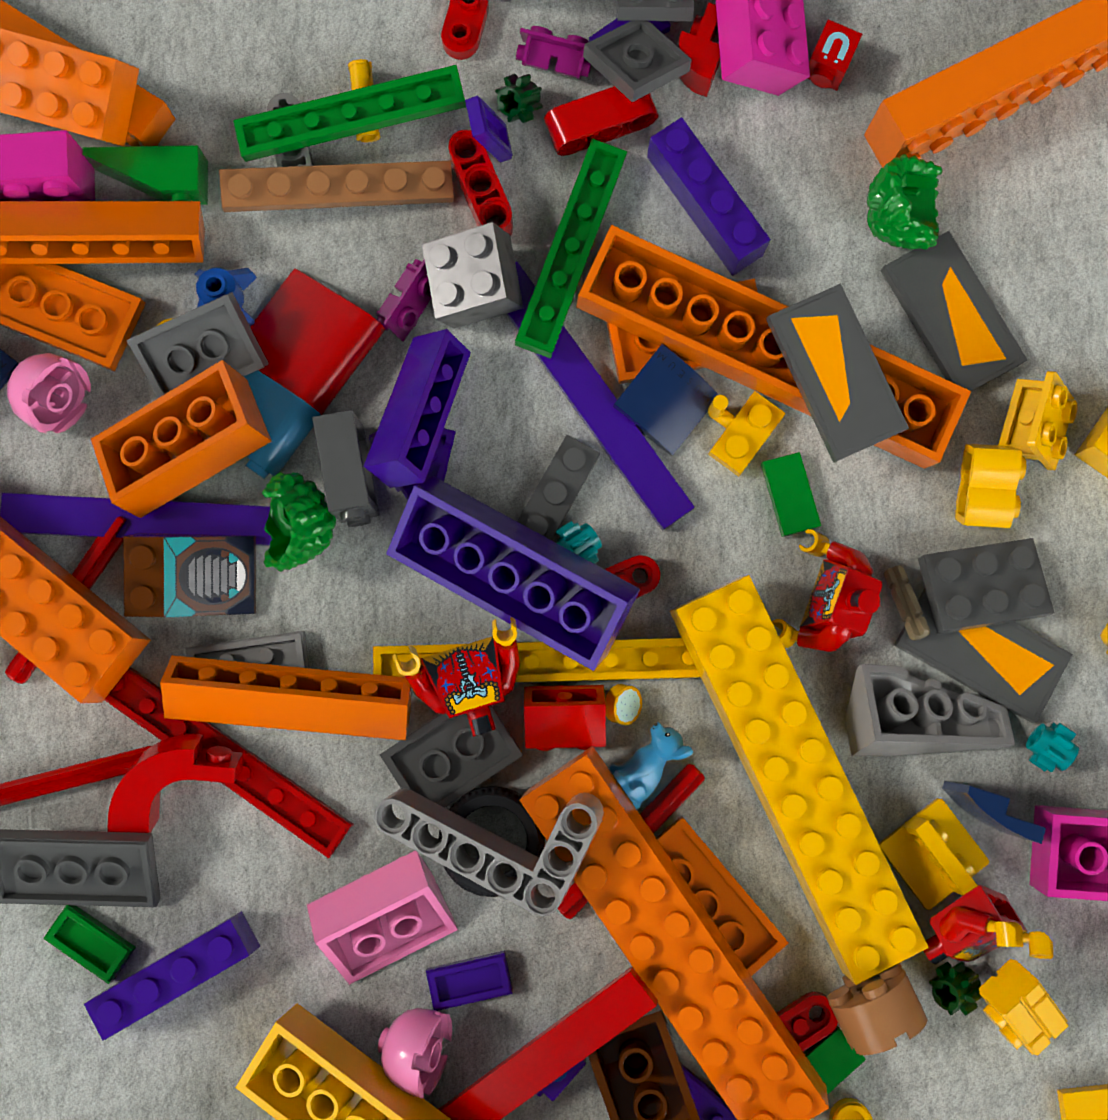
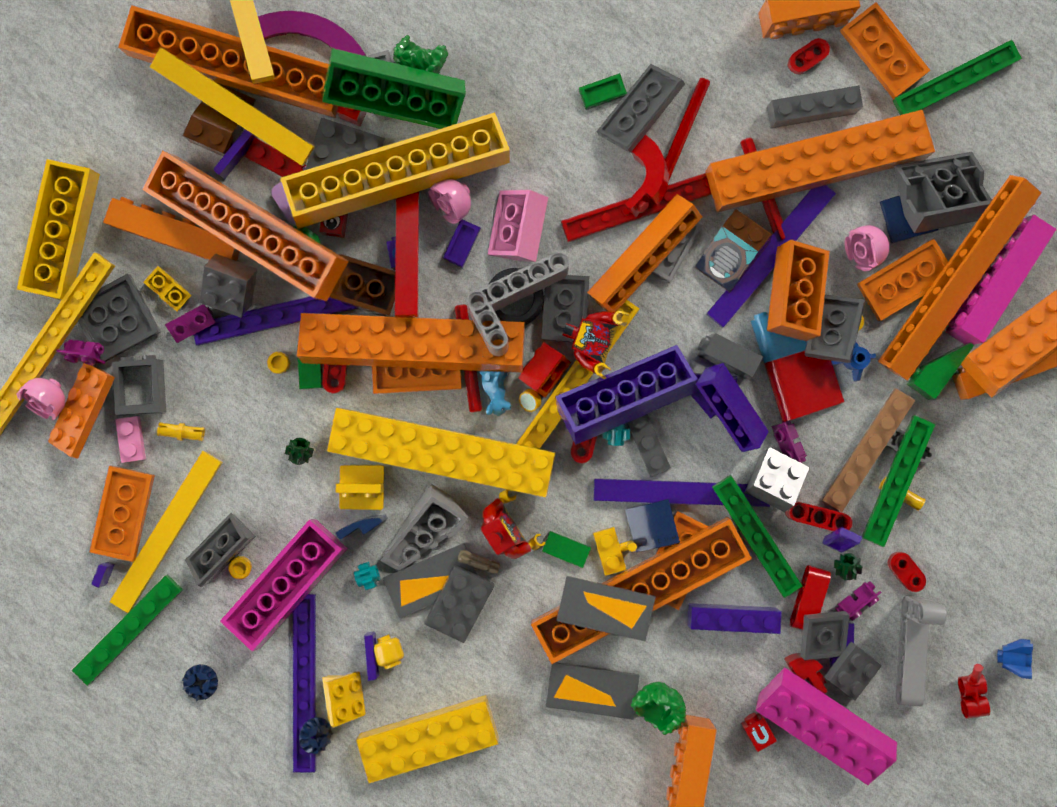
camera: 130 degrees right, 5 degrees up
(172, 976) = (561, 118): dark purple brick -> none
(296, 521) = (721, 315): green hair -> none
(877, 1011) = (318, 409): medium nougat brick -> none
(979, 925) = (318, 483): red torso -> none
(989, 485) = (502, 641): yellow brick -> none
(1022, 1008) = (270, 472): yellow brick -> none
(1040, 419) = (513, 688): yellow bracket -> none

